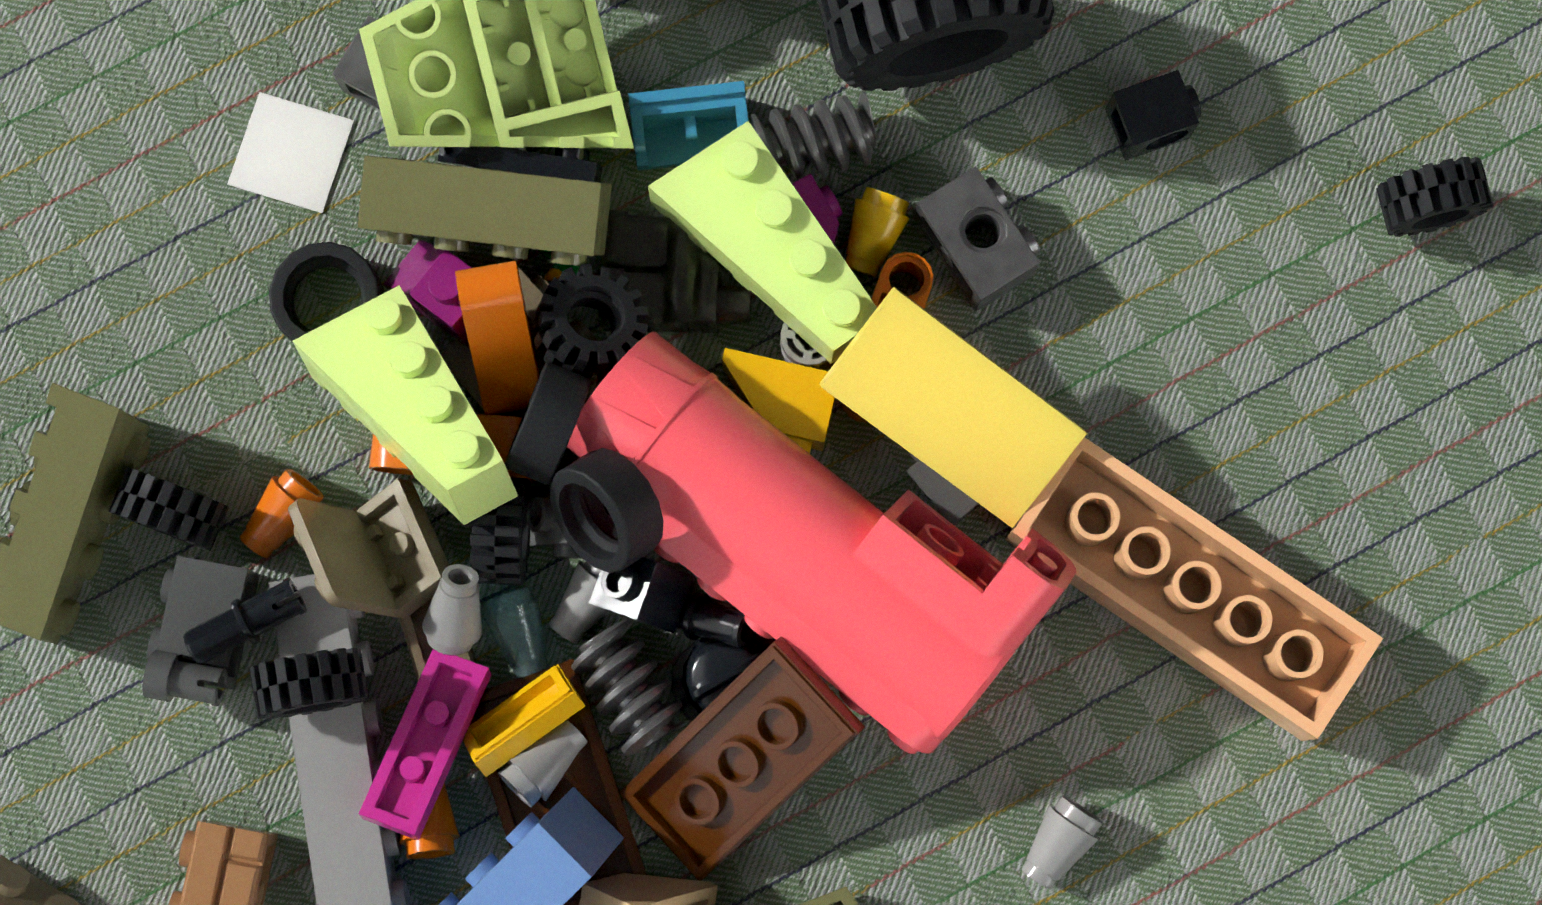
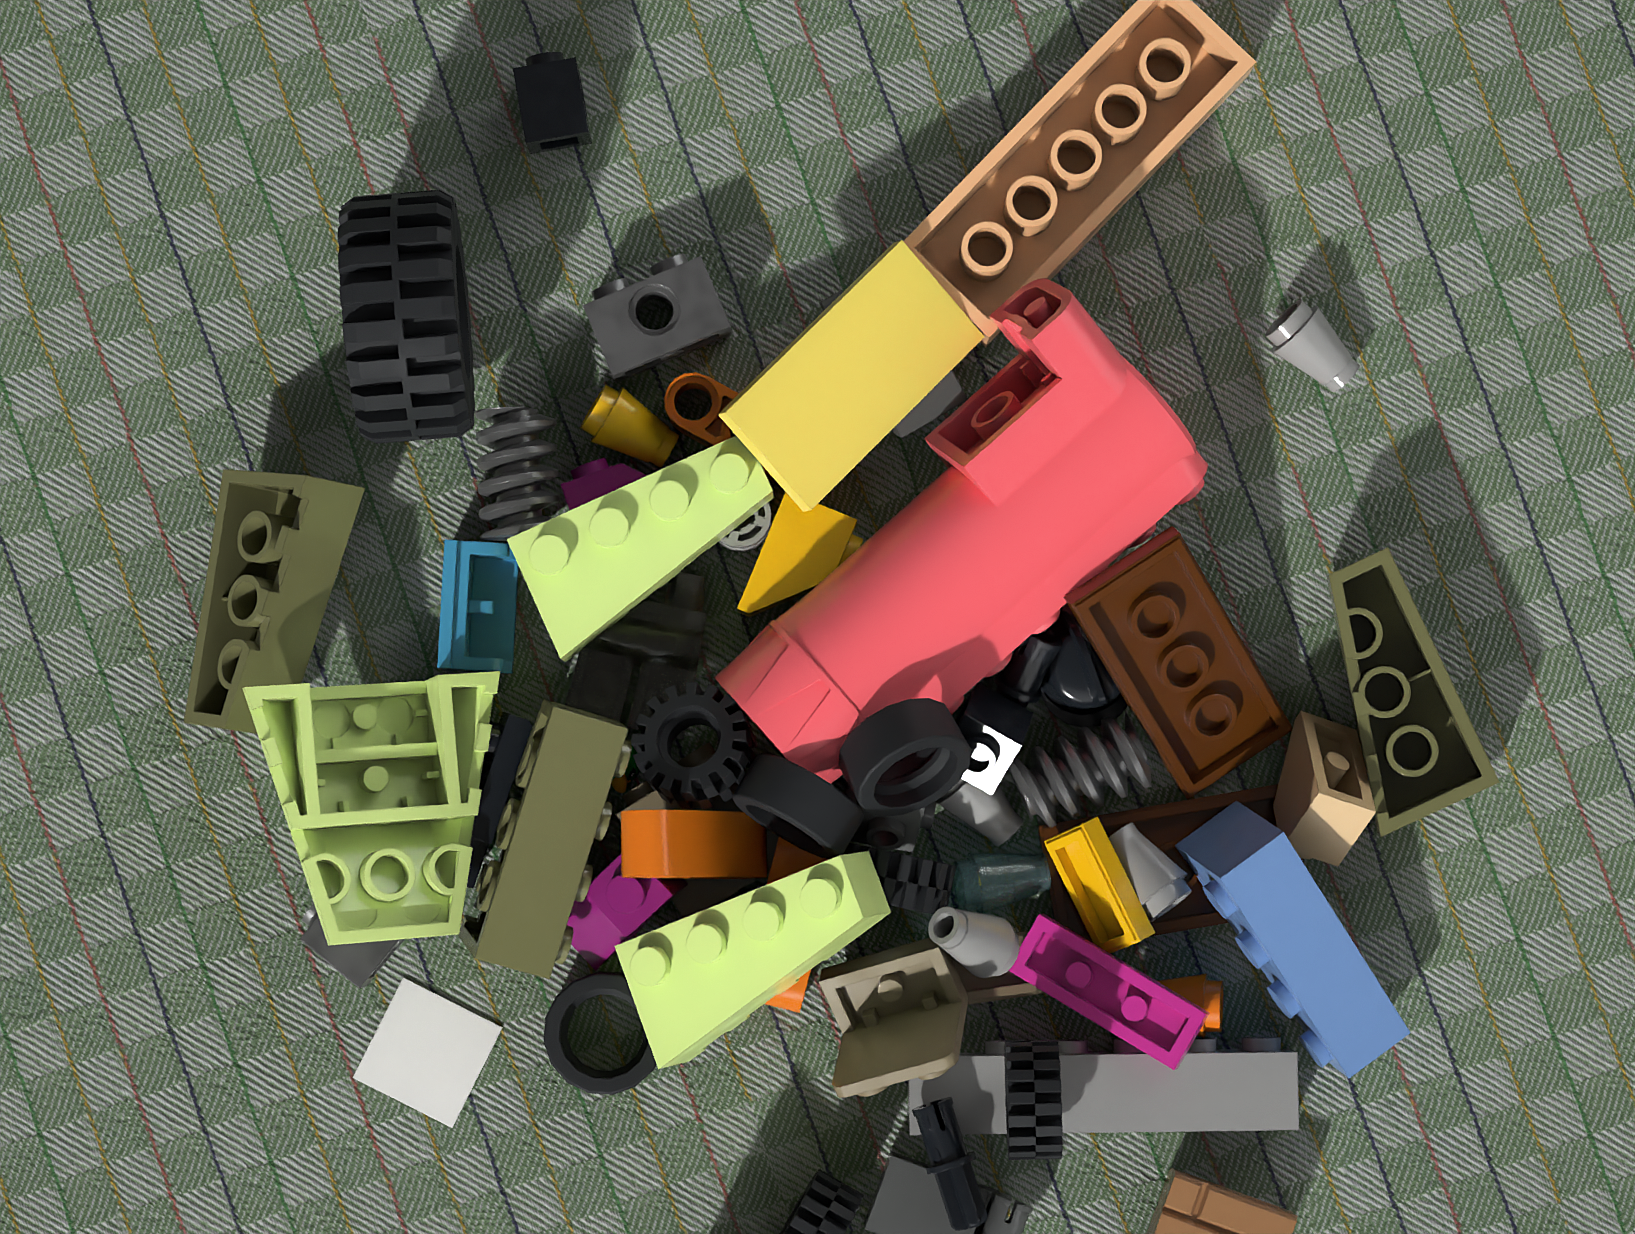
camera: 80 degrees left, 5 degrees up
(271, 521) = (830, 1118): orange cone -> none

